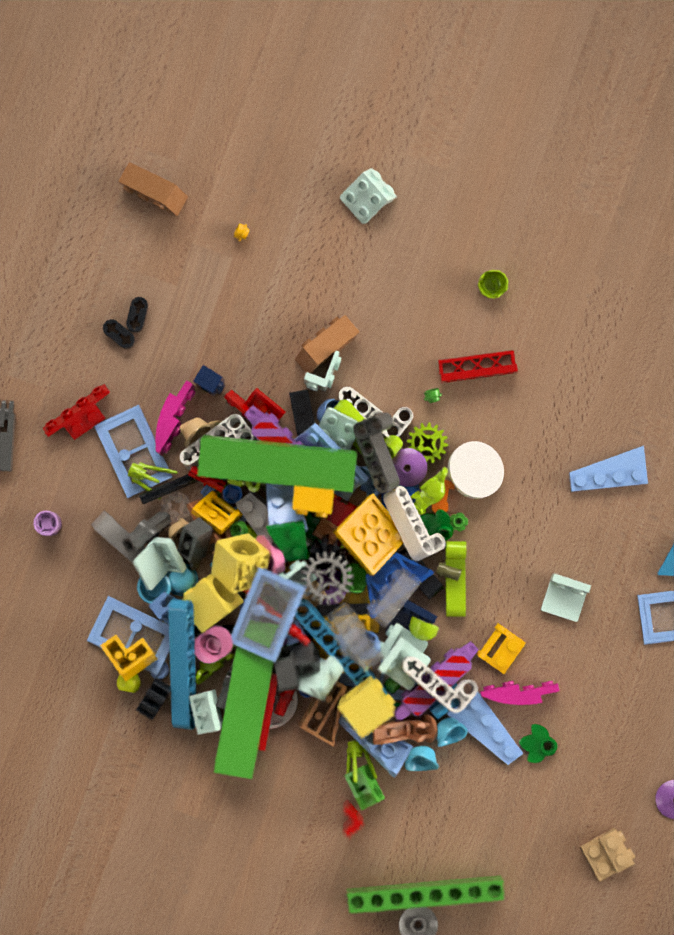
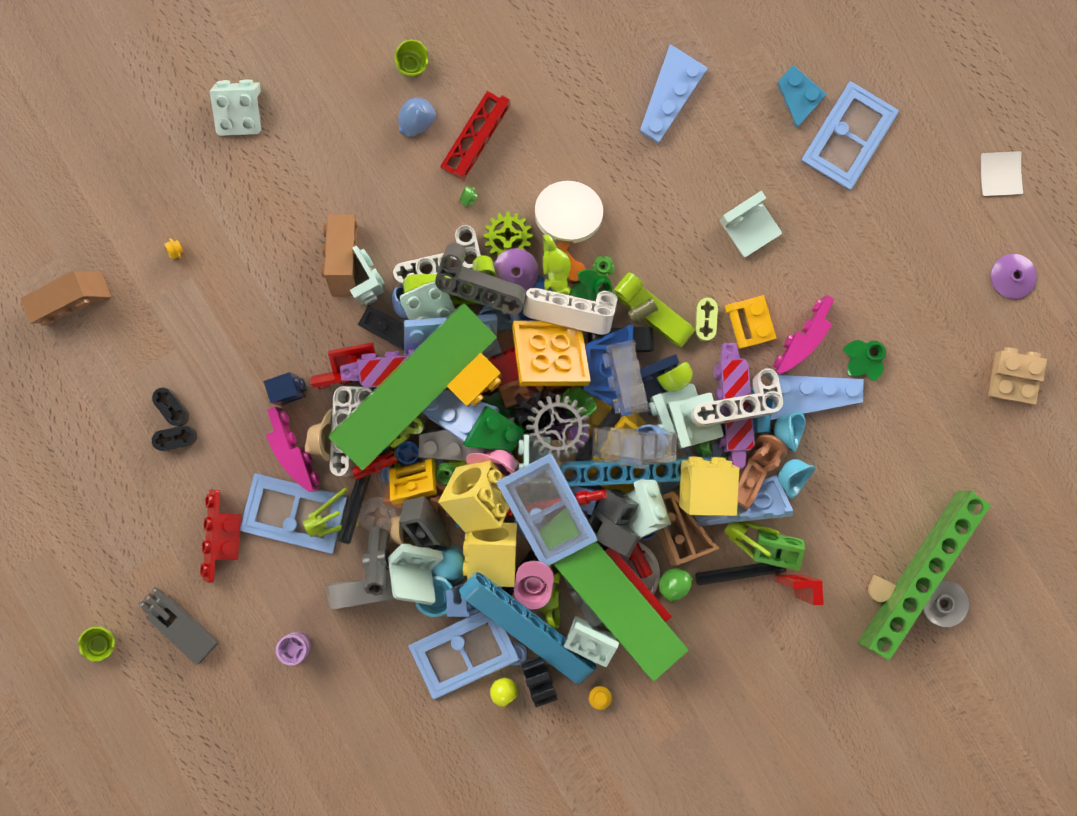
camera: 50 degrees left, 0 degrees up
(130, 660) = (484, 677): yellow brick -> none
(175, 748) = (600, 697): none -> yellow plate
(287, 736) = (675, 584): none -> bright green hair
(328, 772) = (736, 573): none -> black axle
(393, 875) = (880, 589): none -> tan tile
(457, 317) = (416, 116): none -> medium blue hair
(482, 621) = (700, 319): none -> yellowish green beam

